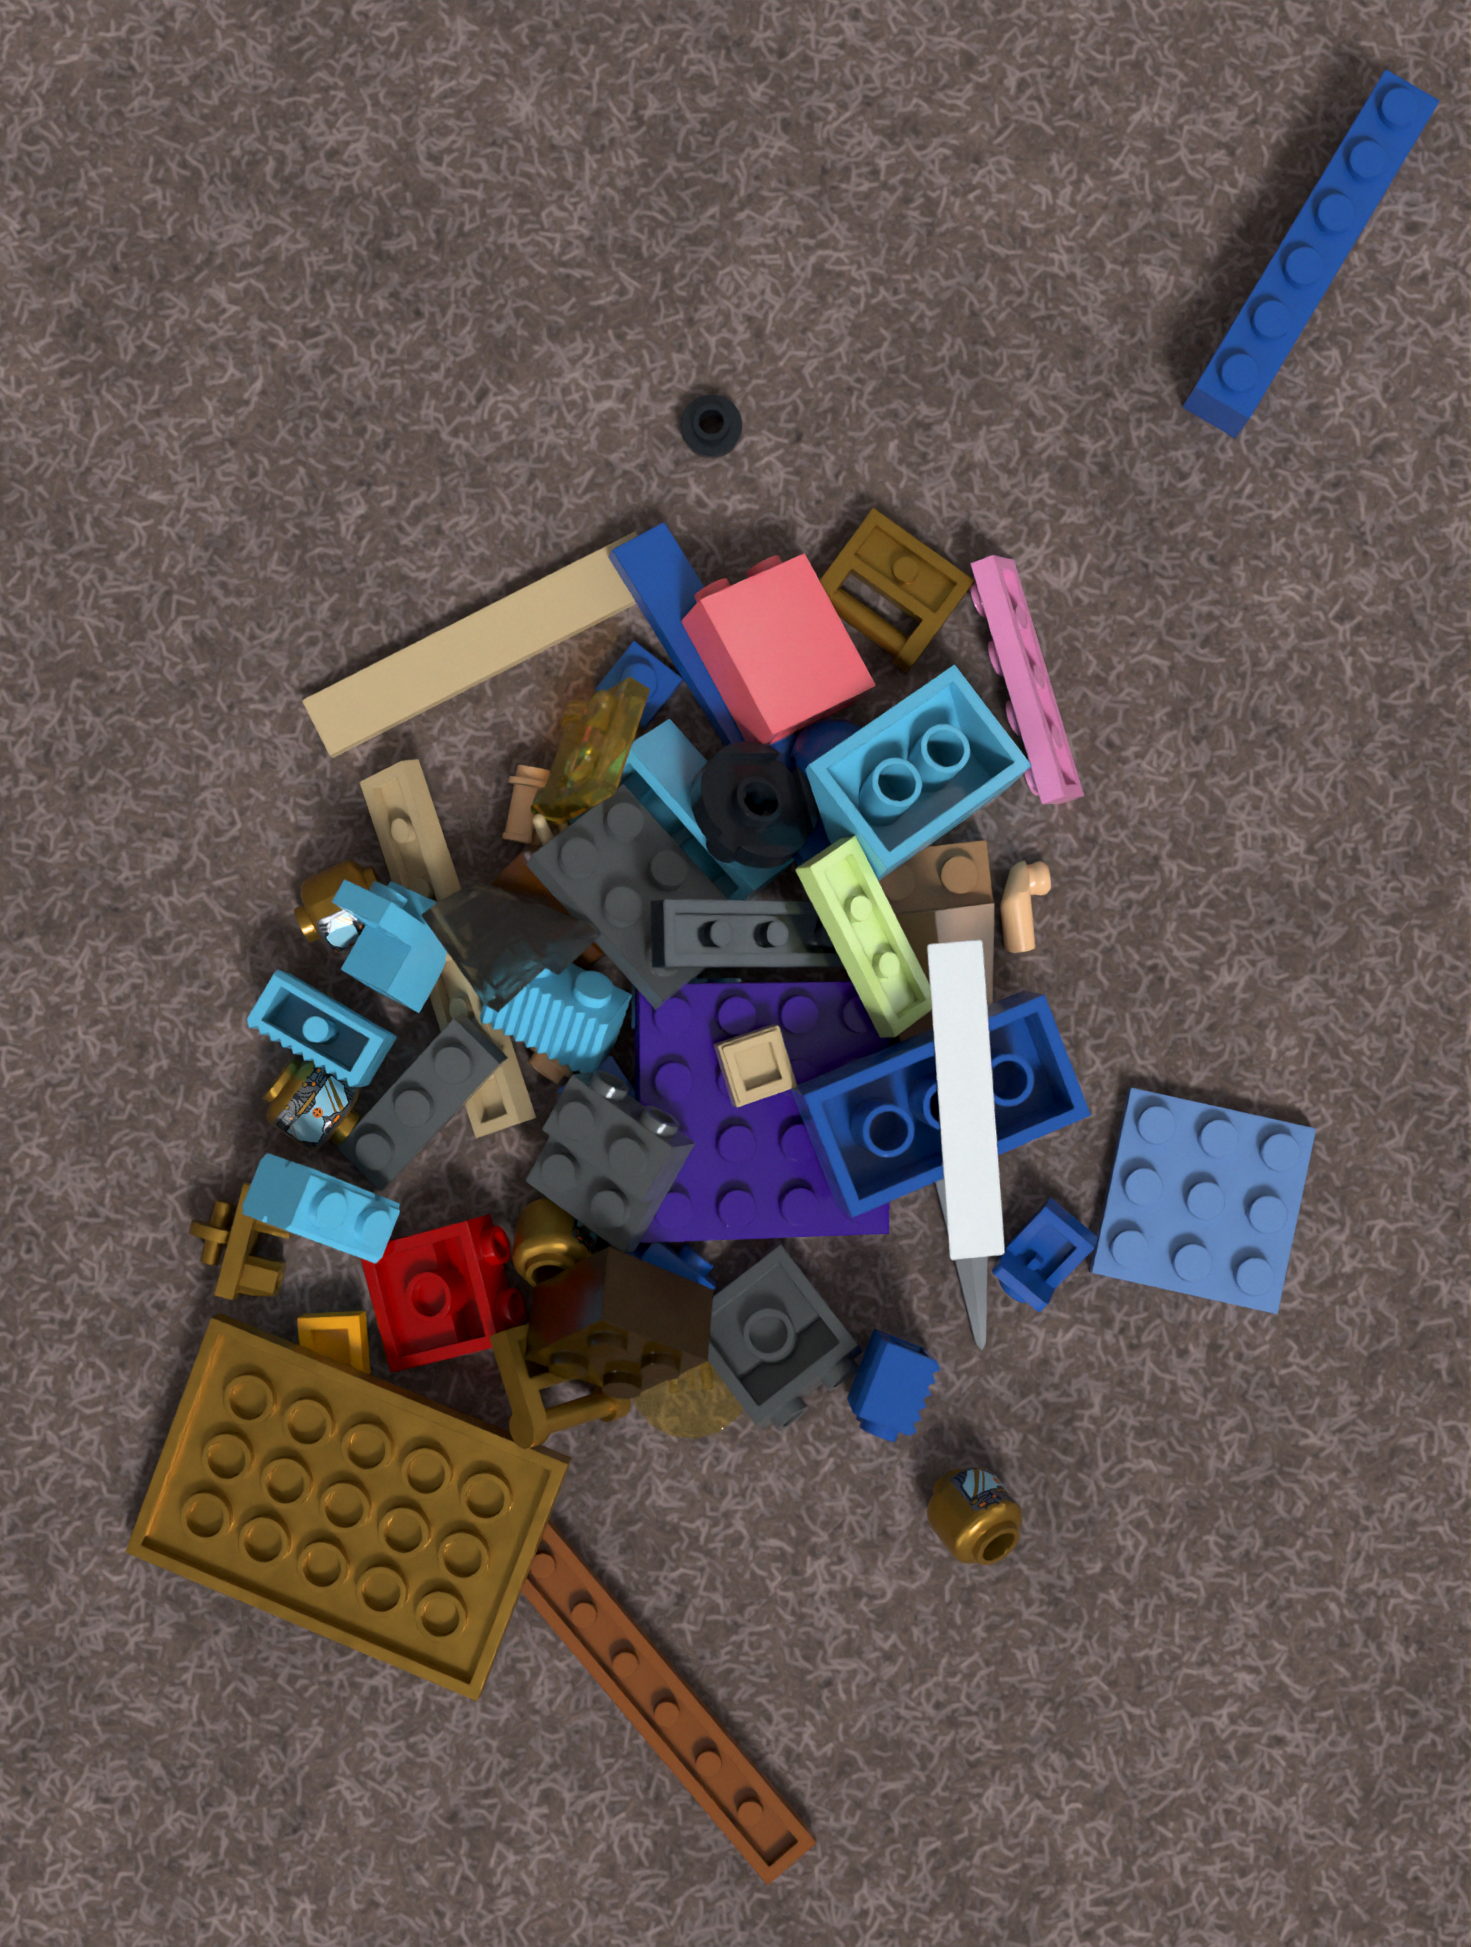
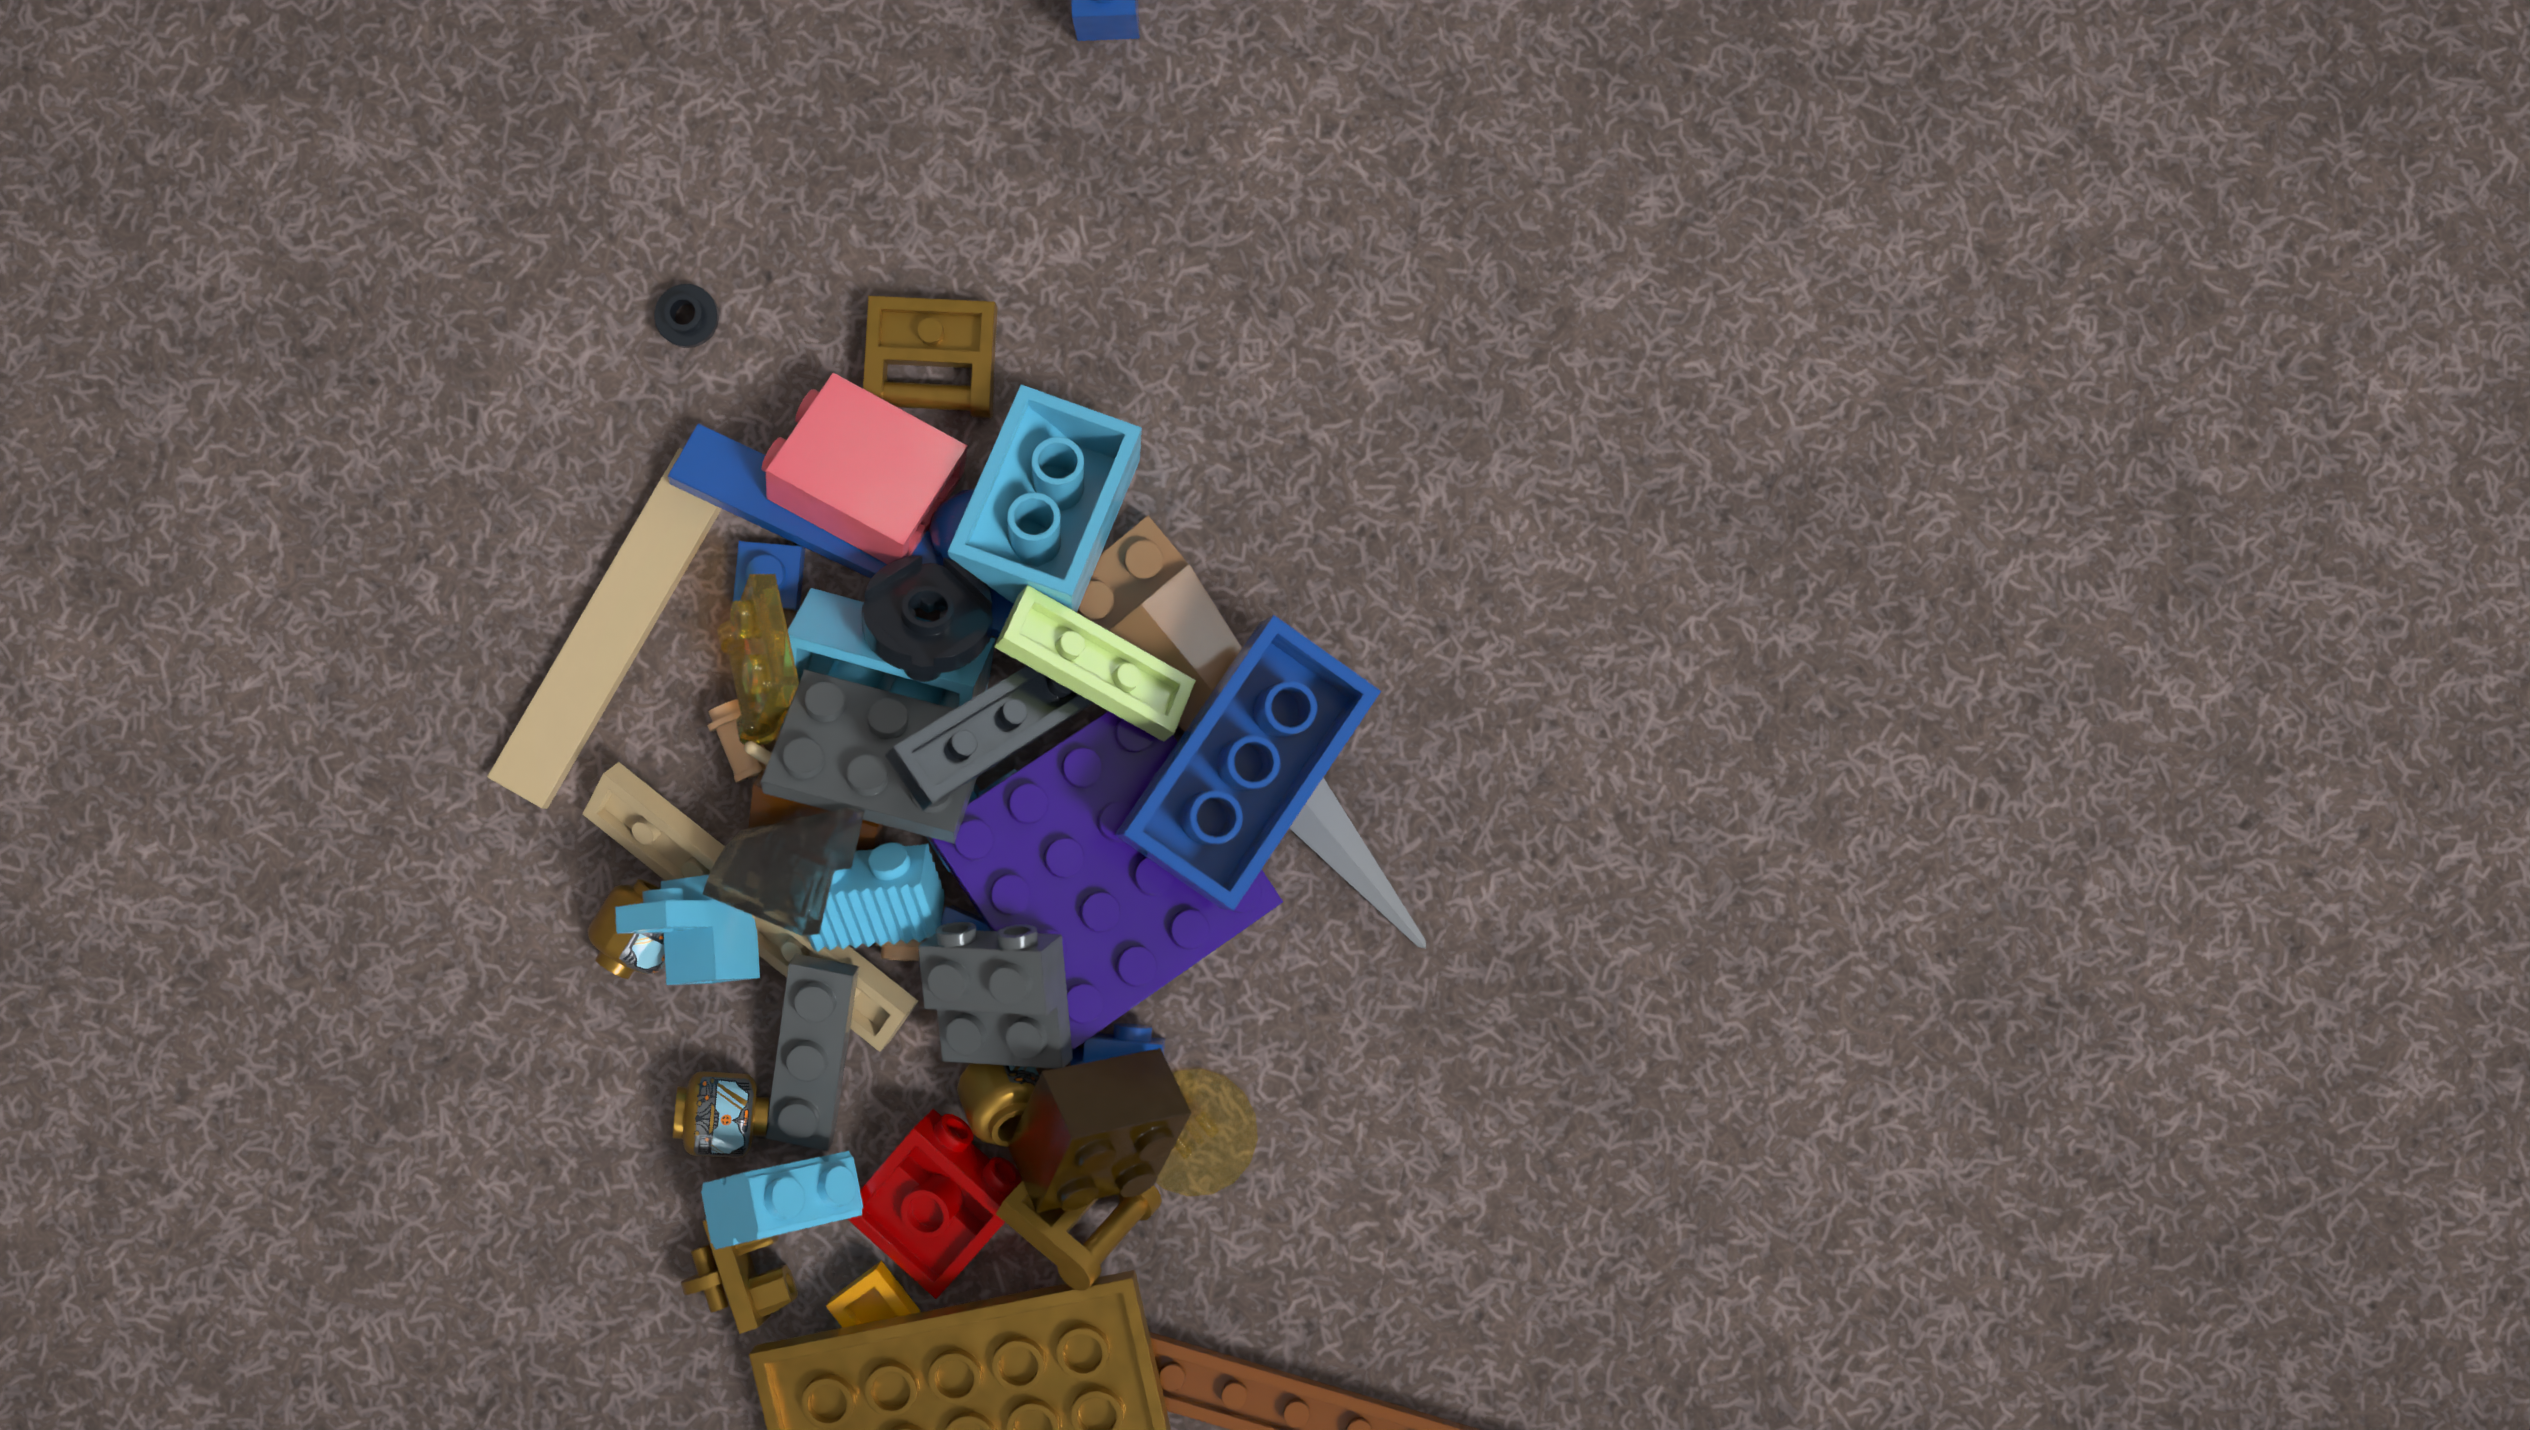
camera: 30 degrees left, 0 degrees up
(321, 1029) = (684, 1047): medium azure brick -> none
(755, 1065) = (1071, 835): tan tile -> none
(777, 1341) = (1246, 1056): dark grey plate -> none
(891, 1386) = (1366, 1030): blue brick -> none
(966, 1099) = (1265, 747): white sticker -> none
(974, 1516) = (1509, 1092): pearl gold head -> none
(1017, 905) = (1210, 553): light nougat arm -> none
(1019, 659) = (1079, 345): bright pink plate -> none
(1043, 1255) = (1424, 834): blue bracket -> none
(1202, 1200) = (1529, 699): medium blue plate -> none

